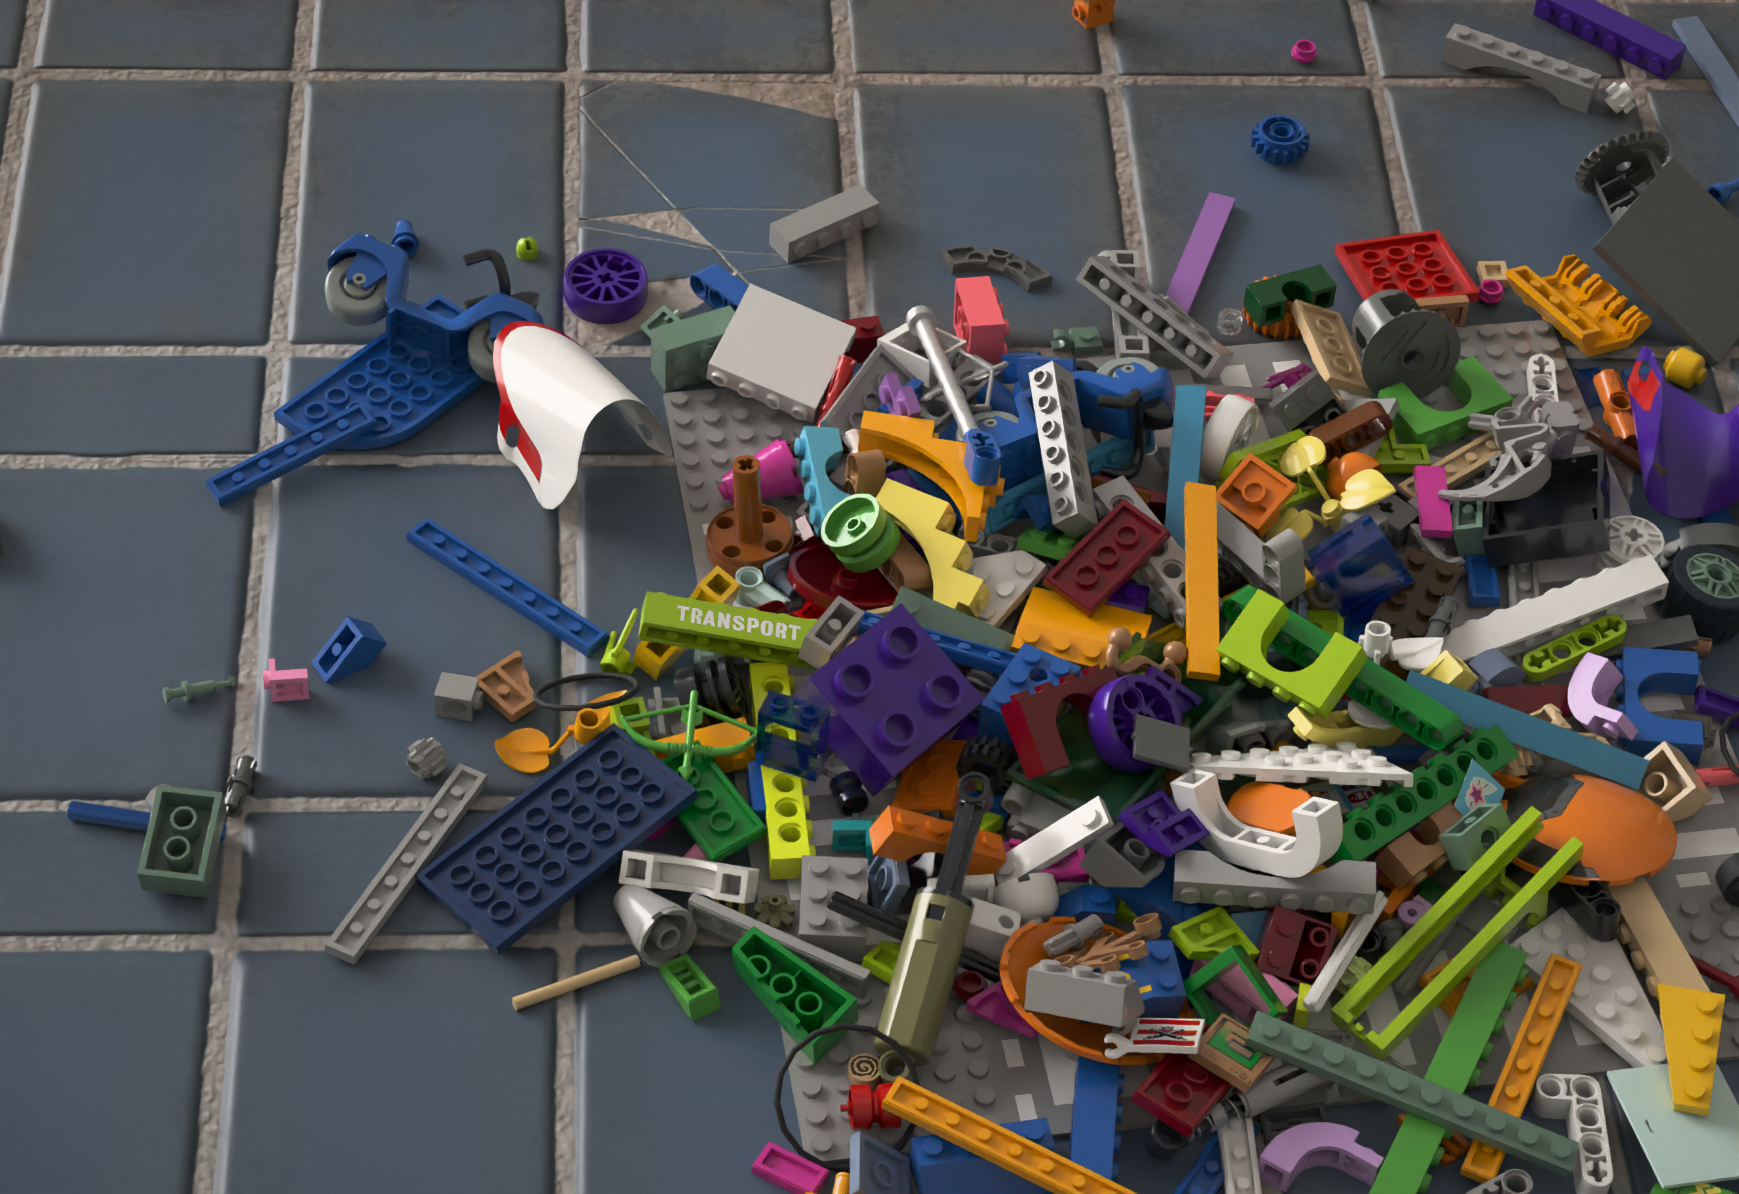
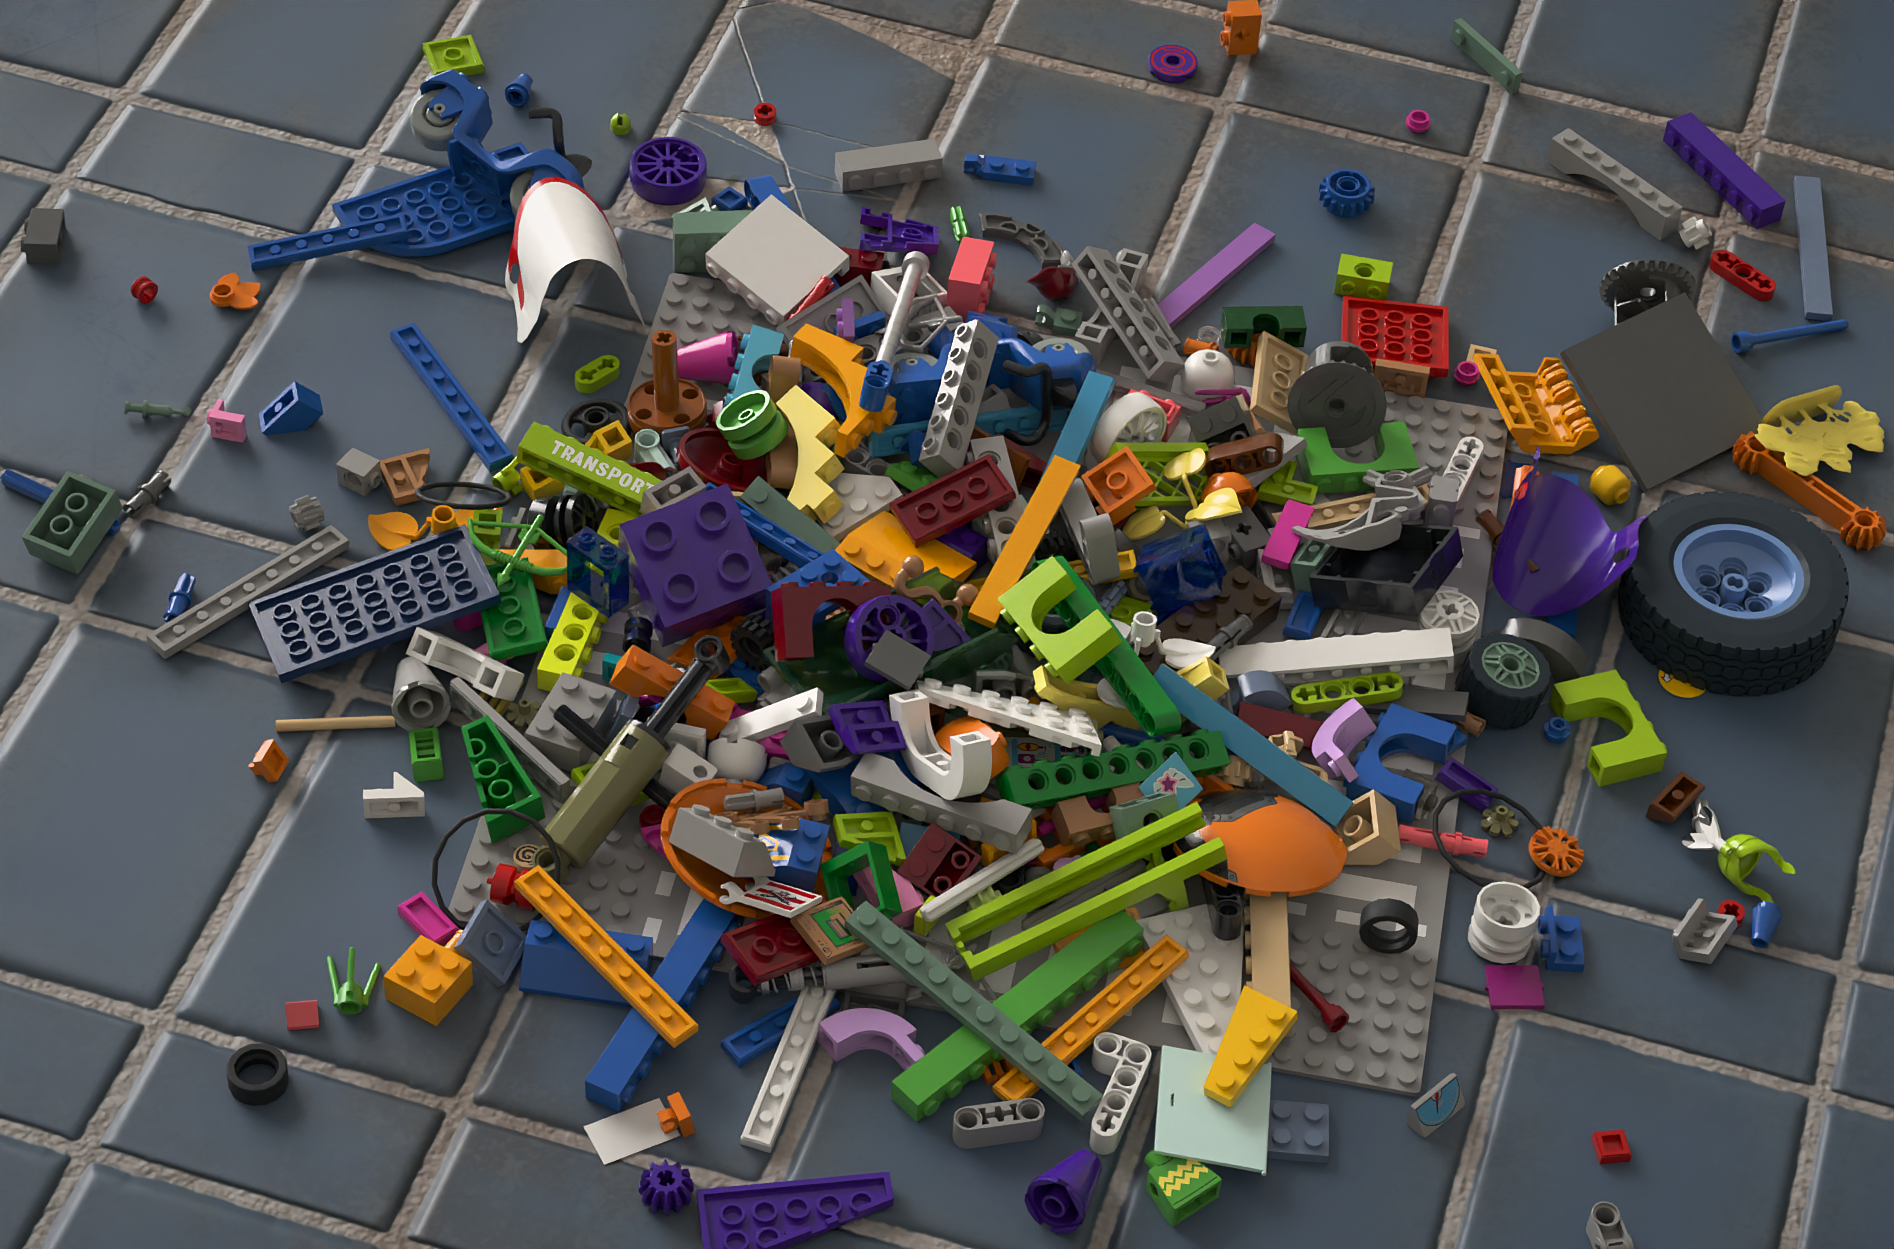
camera: 20 degrees right, 0 degrees up
(117, 559) = (144, 290): none -> red bush
(216, 537) = (235, 293): none -> orange plate
(314, 221) = (453, 53): none -> lime tile
(336, 892) = (180, 597): none -> blue axle
(531, 1046) = (269, 761): none -> orange tile
(641, 519) = (597, 374): none -> lime beam
(668, 195) = (765, 108): none -> red bush
(678, 571) = (594, 416): none -> black wheel
(683, 300) = (729, 200): none -> blue tile
(693, 1047) = (402, 801): none -> white slope
(880, 293) = (900, 235): none -> dark purple wing
(925, 267) = (959, 223): none -> bright green piece
(934, 199) = (1001, 169): none -> blue hinge
(1030, 42) = (1162, 56): none -> dark purple tile
(1058, 299) = (1058, 281): none -> dark red hair
(1231, 334) = (1192, 346): none -> orange pin
(1256, 358) = (1207, 371): none -> white cylinder
(1343, 221) = (1363, 277): none -> lime brick
(1697, 133) = (1756, 285): none -> red beam

